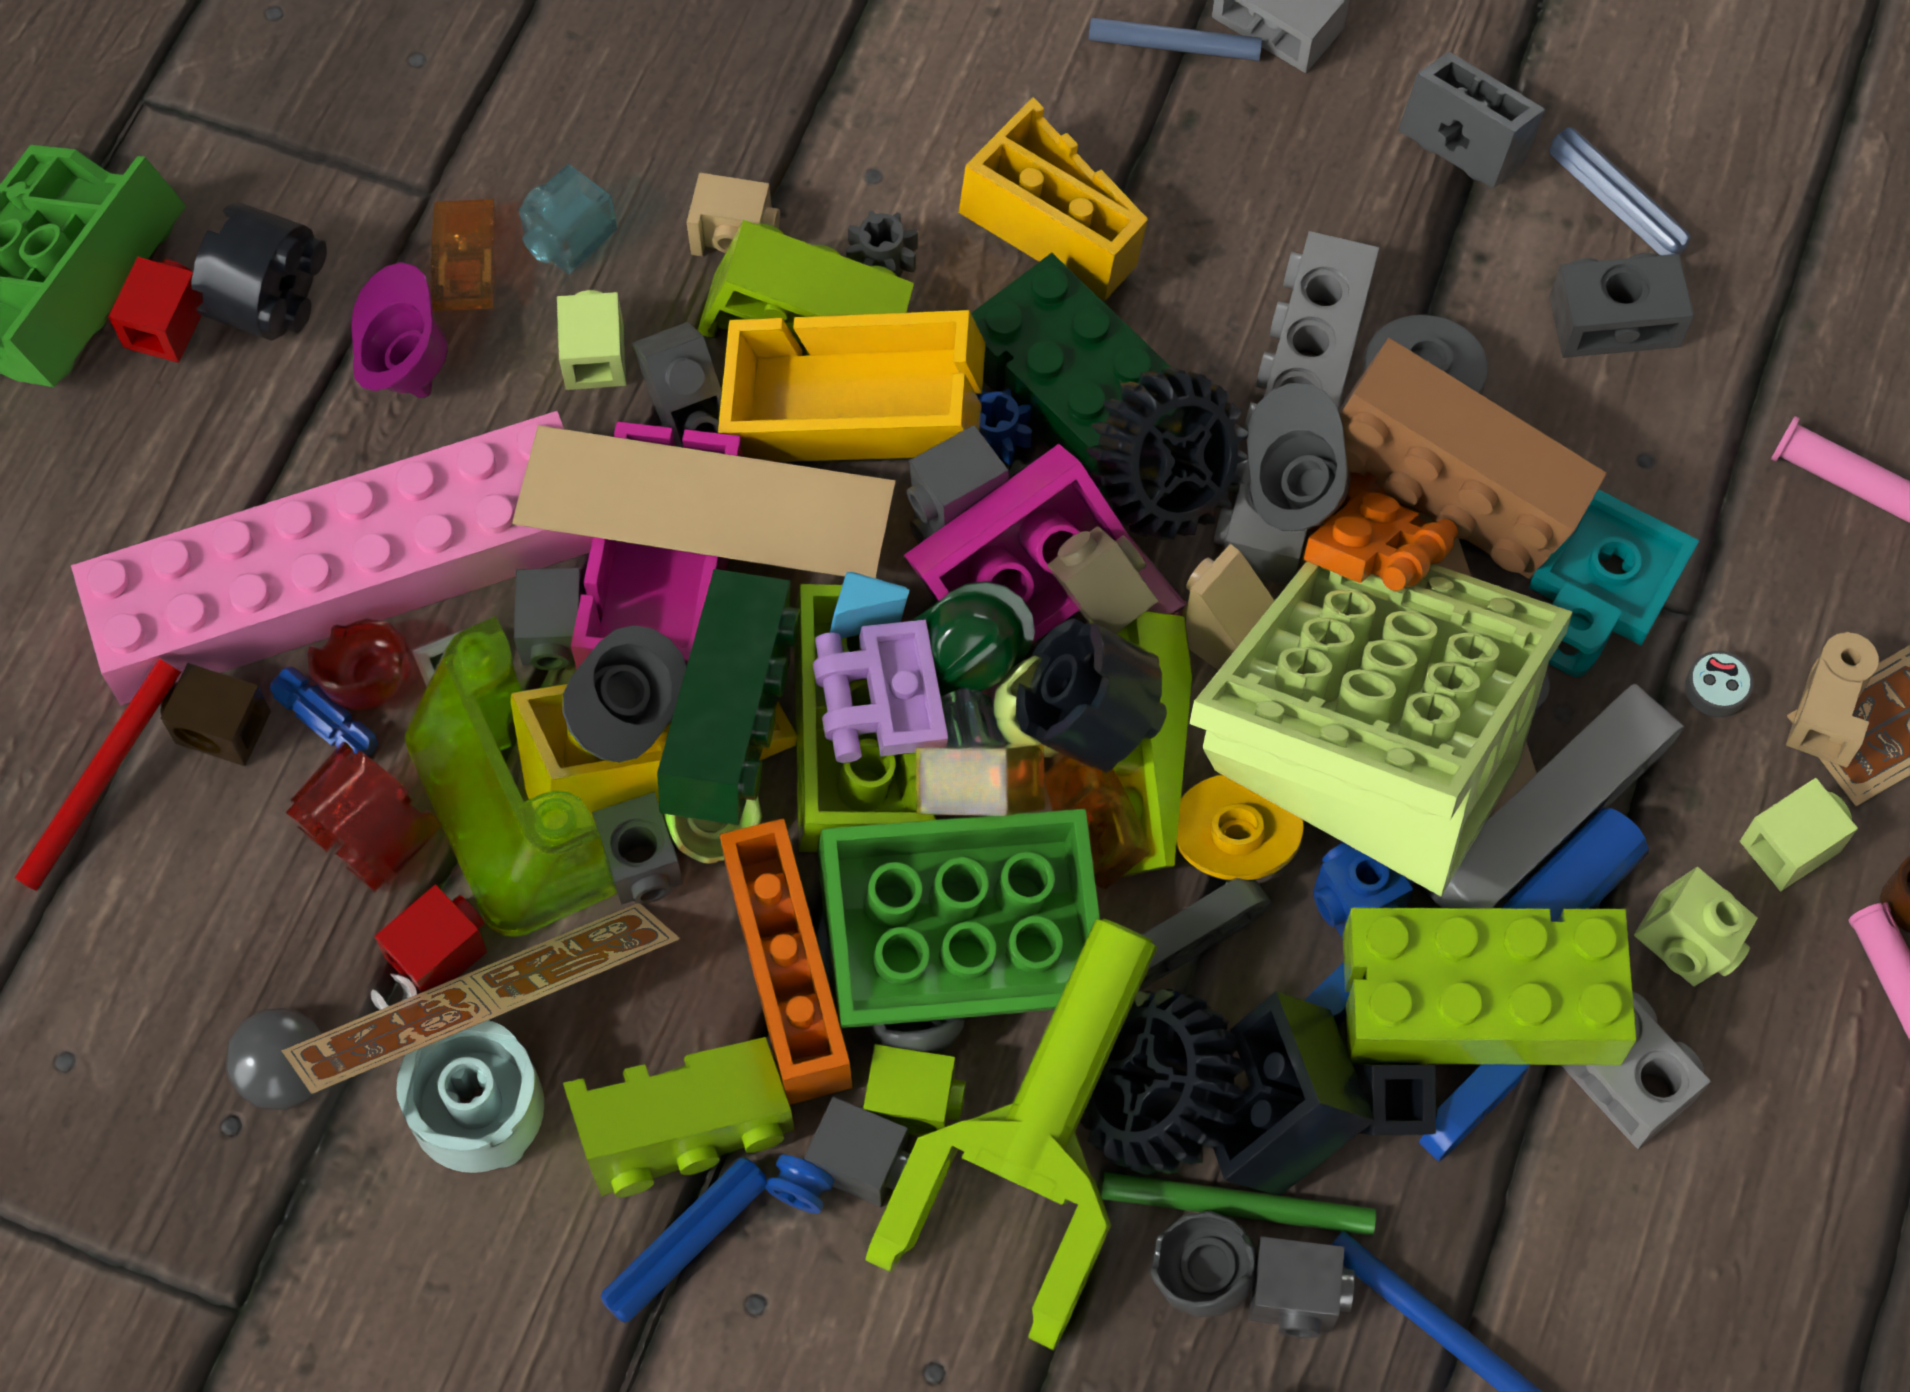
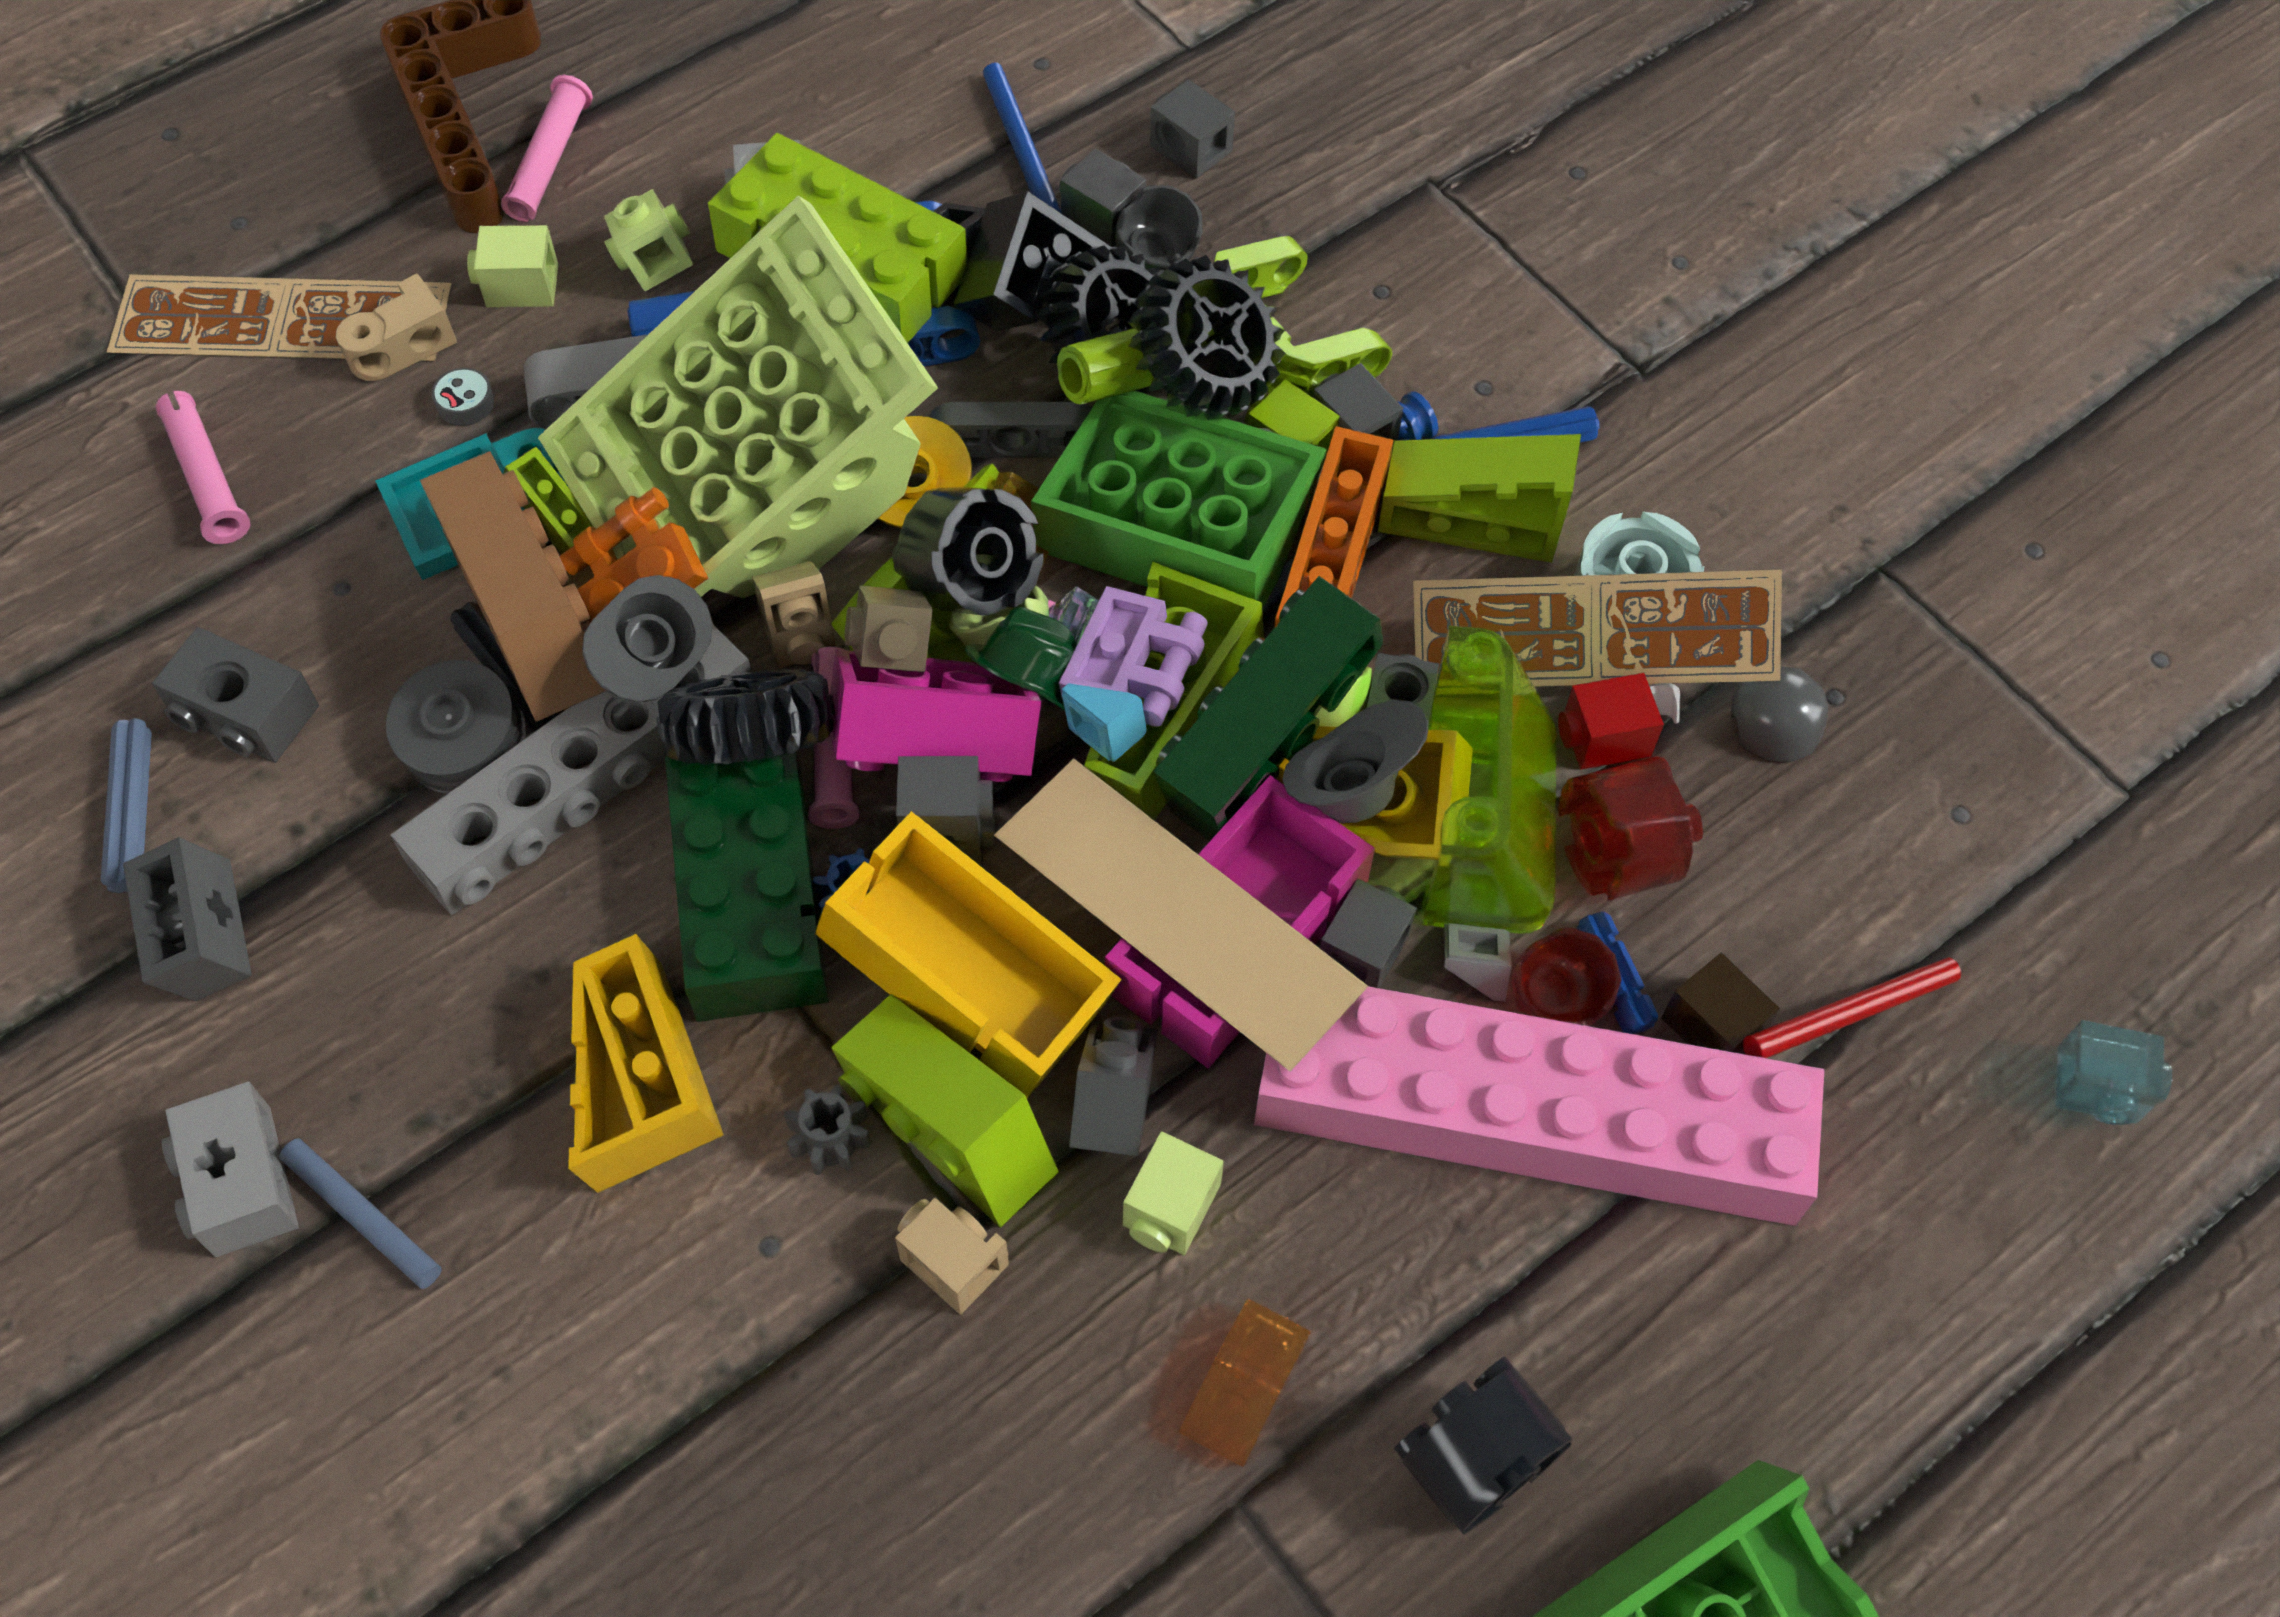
camera: 150 degrees left, 5 degrees down
(157, 309) = (1608, 1483): red brick -> none
(395, 333) = (1372, 1299): magenta piece -> none
(566, 219) = (1120, 1351): clear light blue brick -> none
(980, 779) = (1100, 552): clear yellow slope -> none
(1033, 1059) = (1176, 318): none -> black gear
(1536, 575) = (550, 498): none -> lime piece

